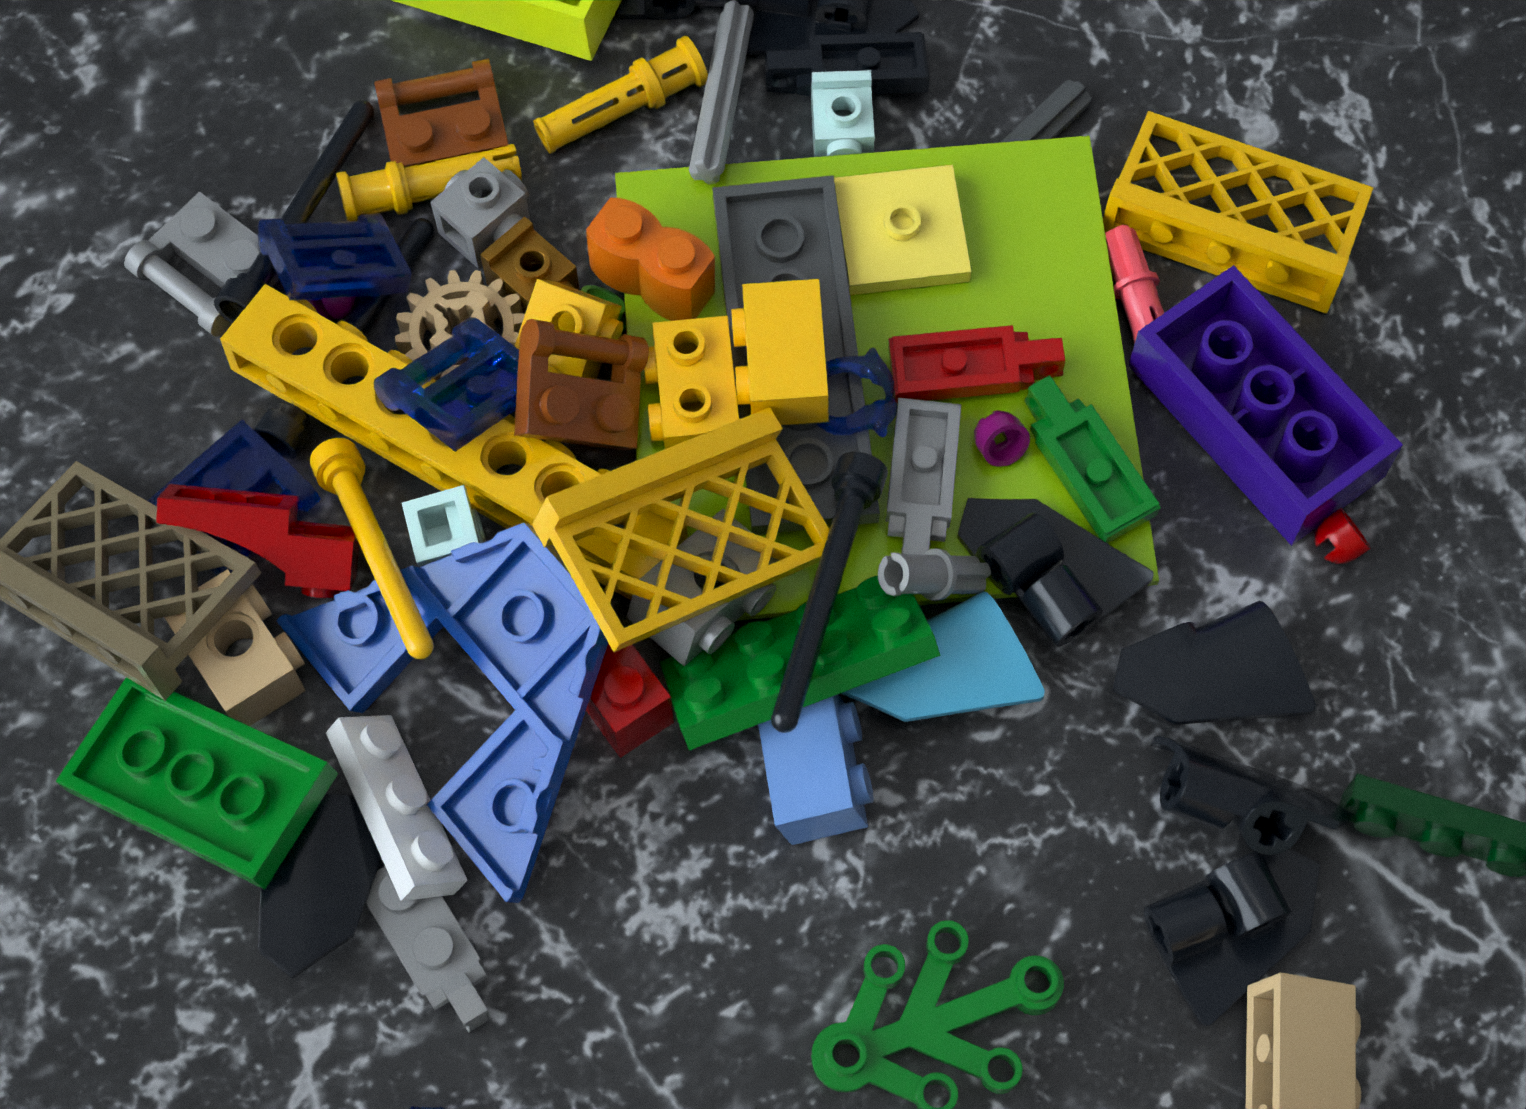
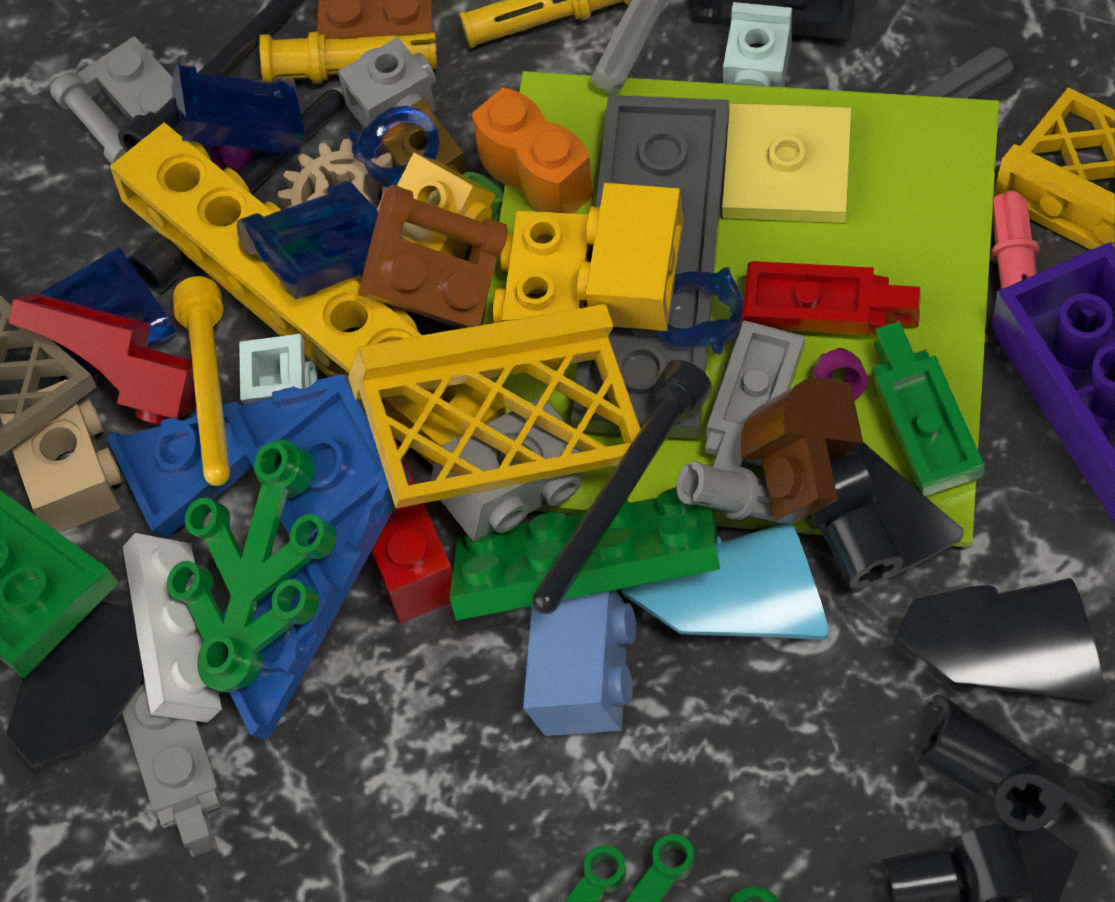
camera: 20 degrees right, 5 degrees down
(475, 740) = (254, 572): none -> green plant
(480, 268) = (370, 139): none -> clear blue piece
(982, 514) = (797, 439): none -> reddish brown brick

